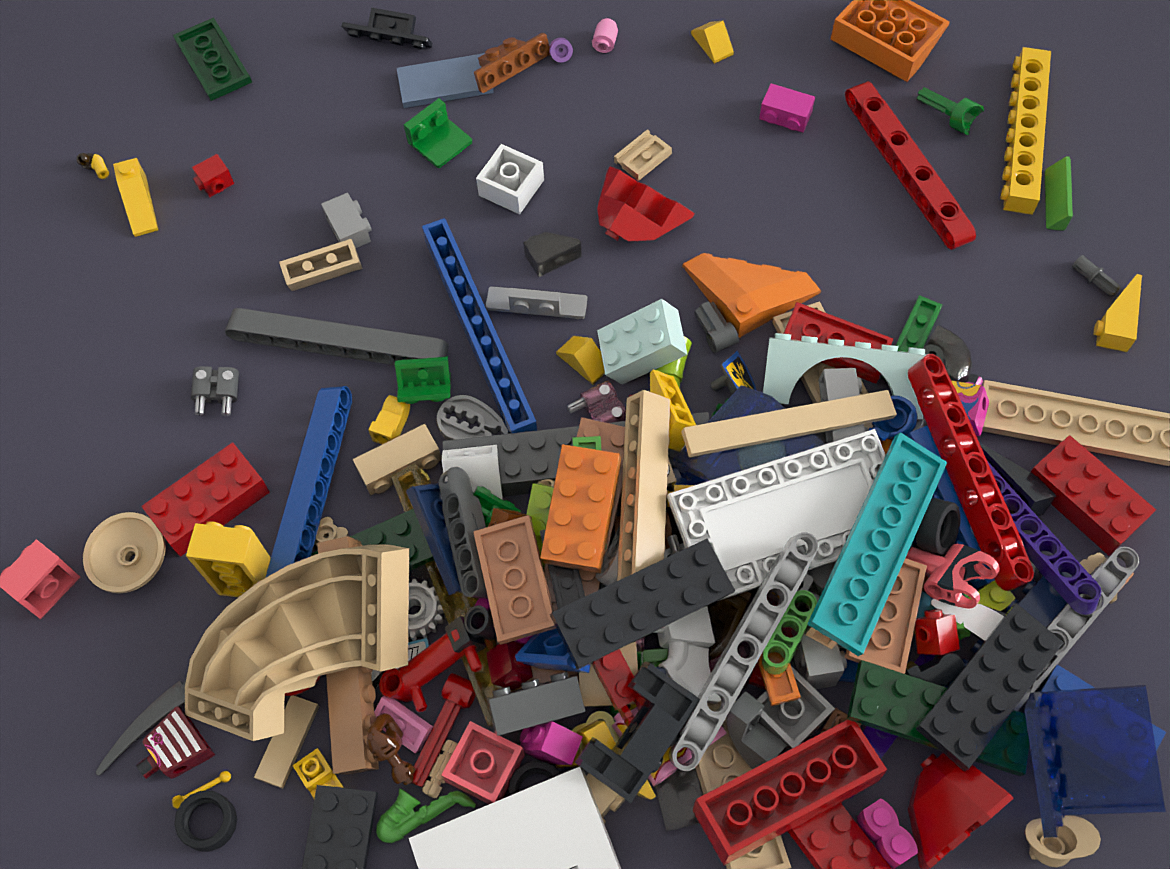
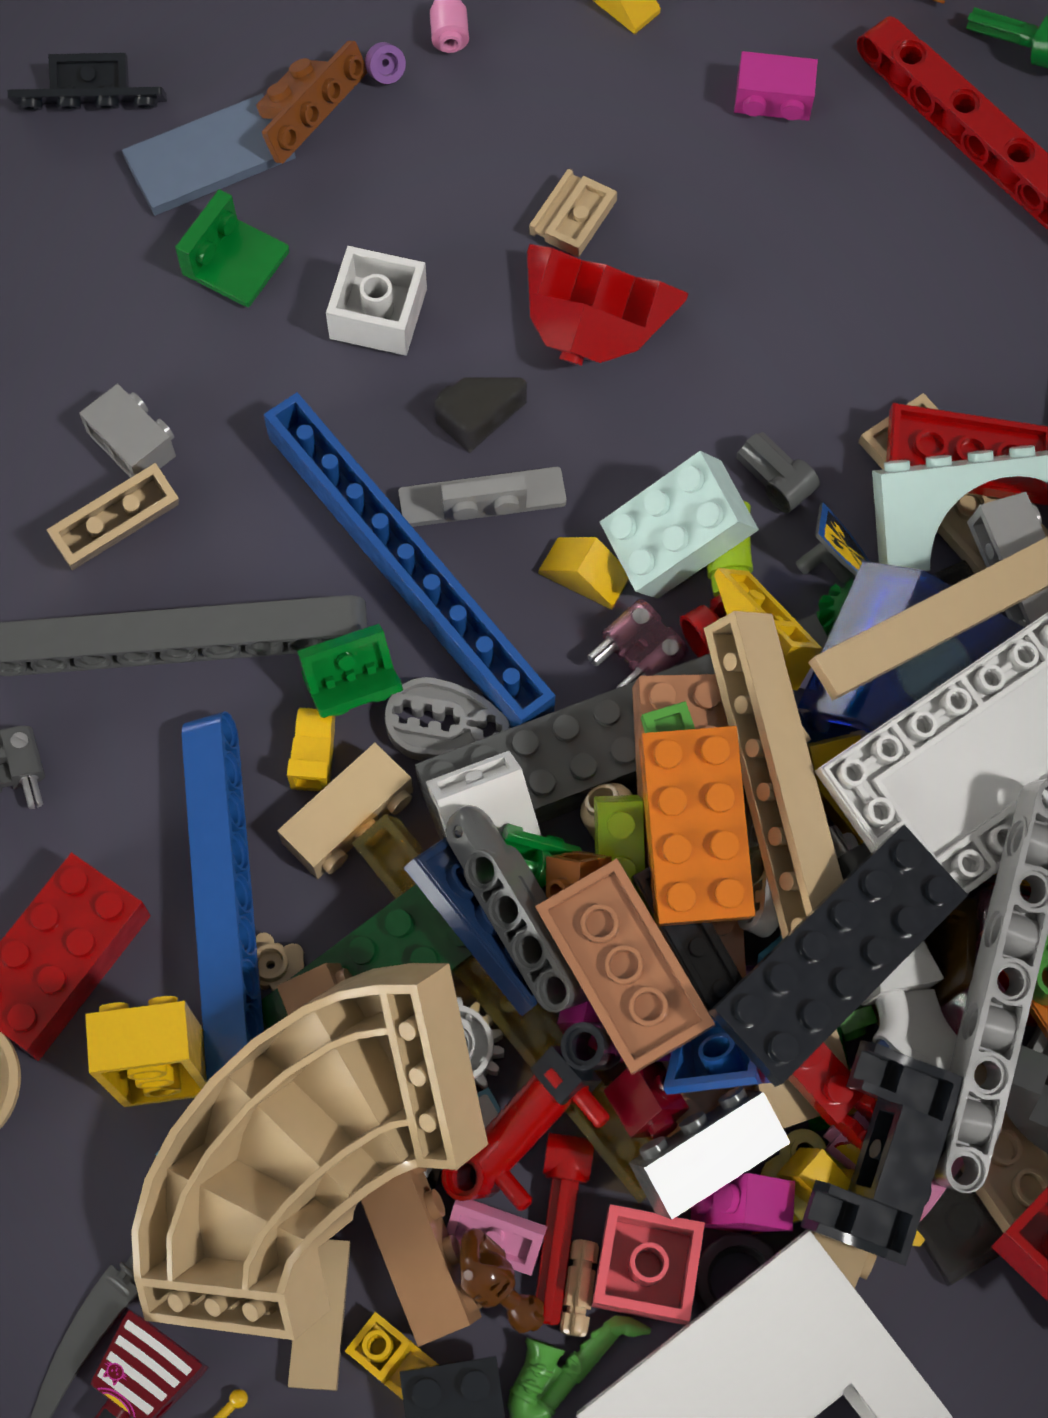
camera: 20 degrees left, 5 degrees up
(749, 292) = (805, 401): orange slope -> none

